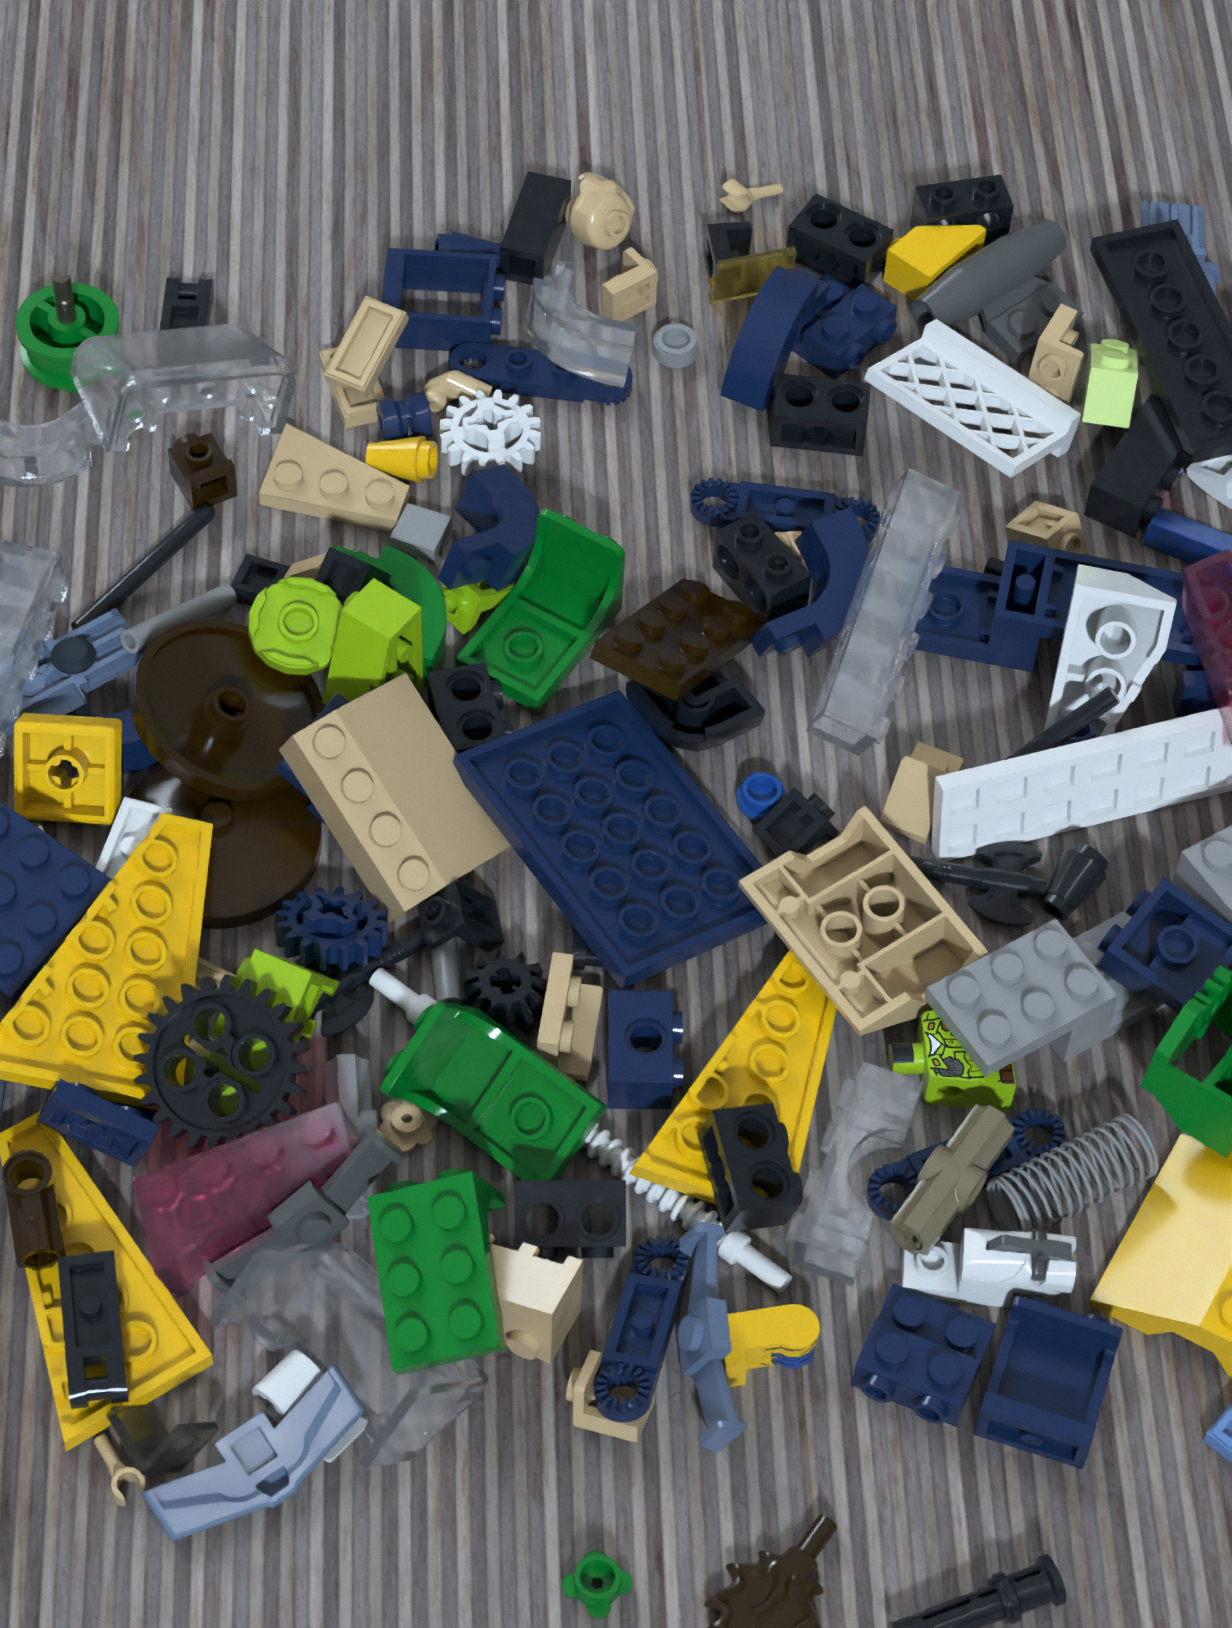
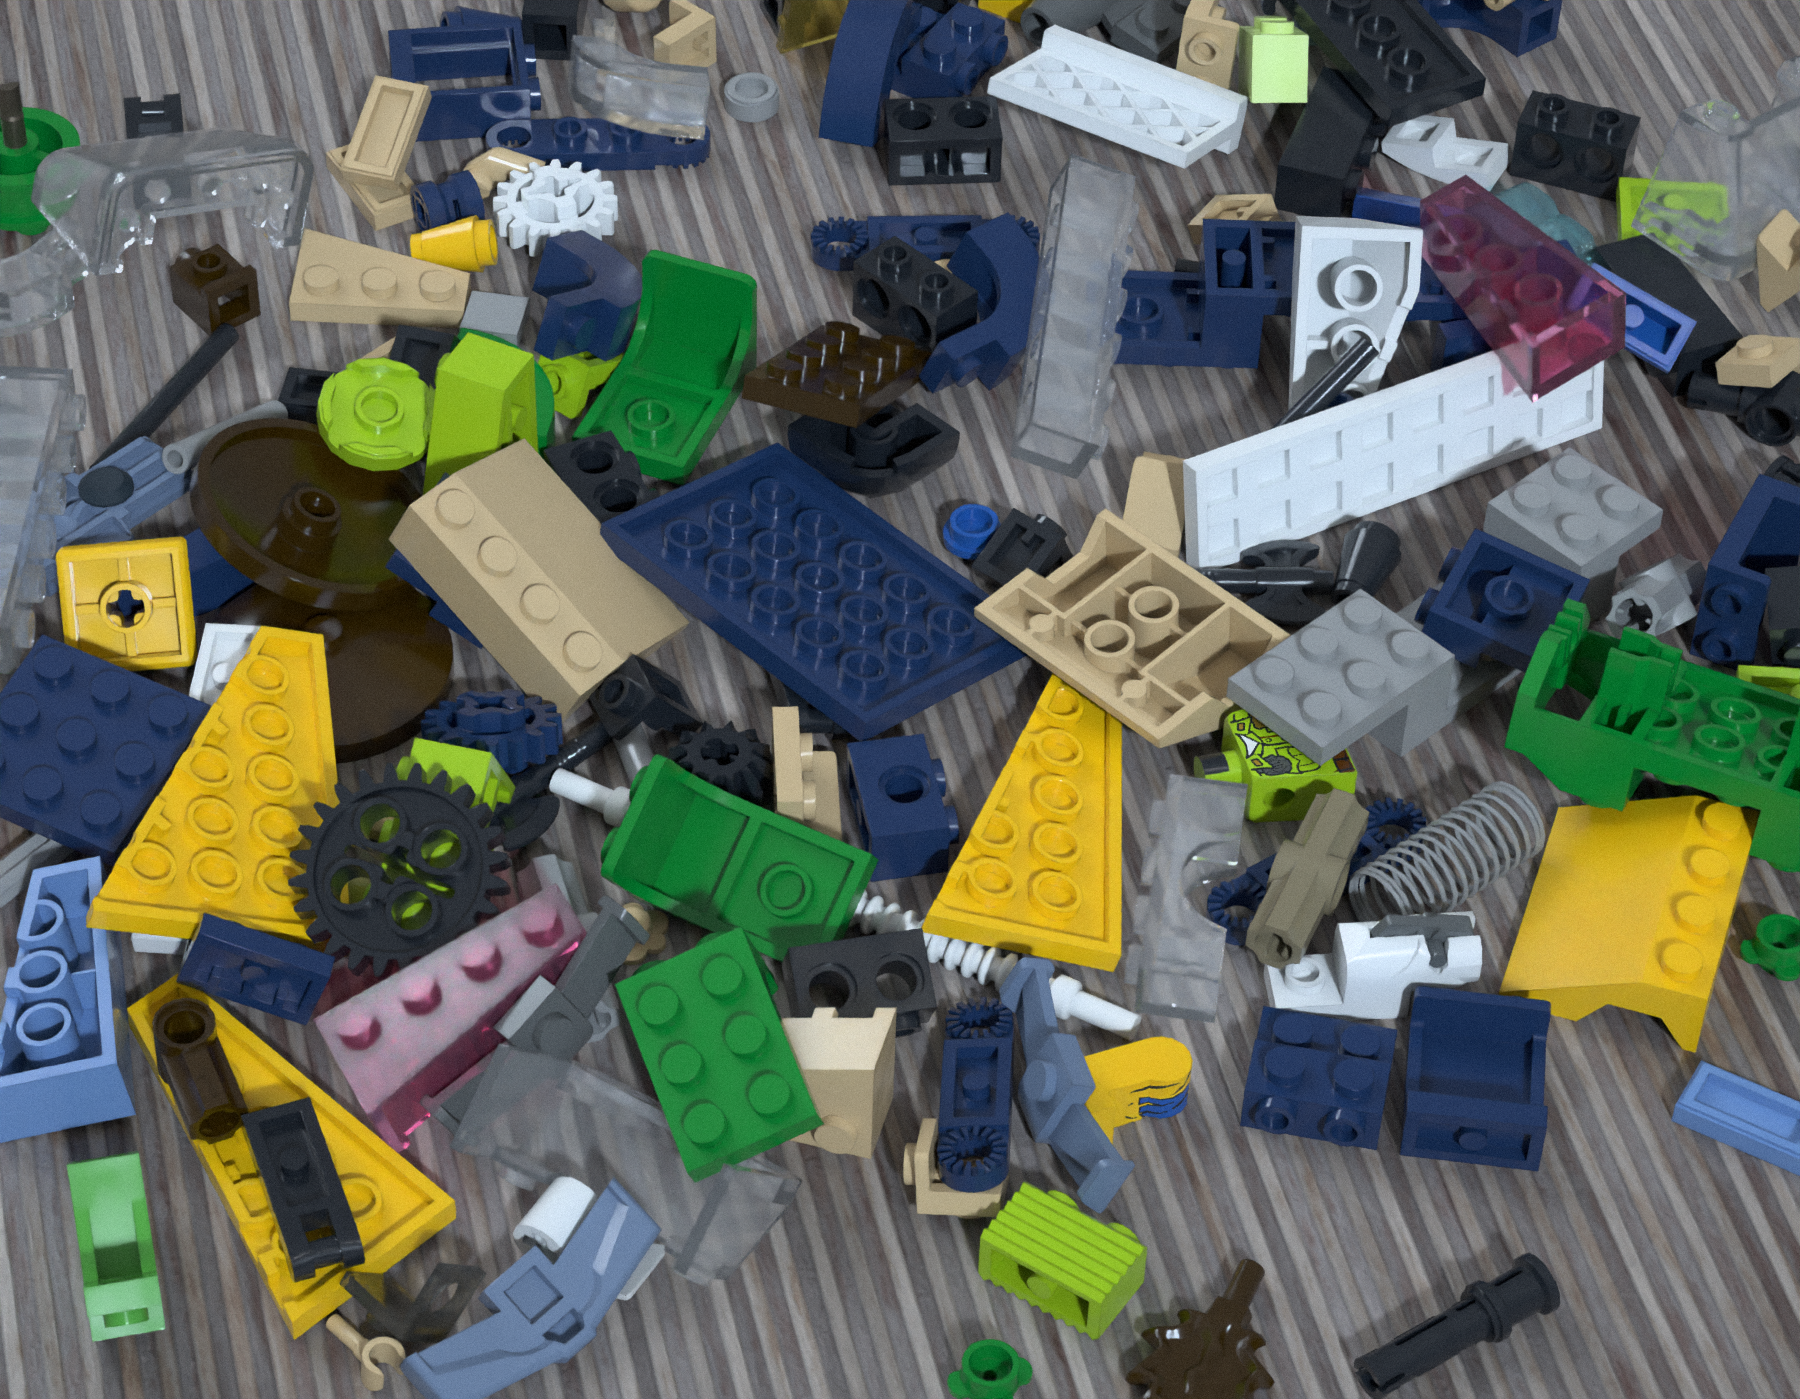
camera: 10 degrees left, 10 degrees down
(677, 1489) = (1062, 1259): none -> lime brick
(737, 1167) = (1066, 896): black brick -> none

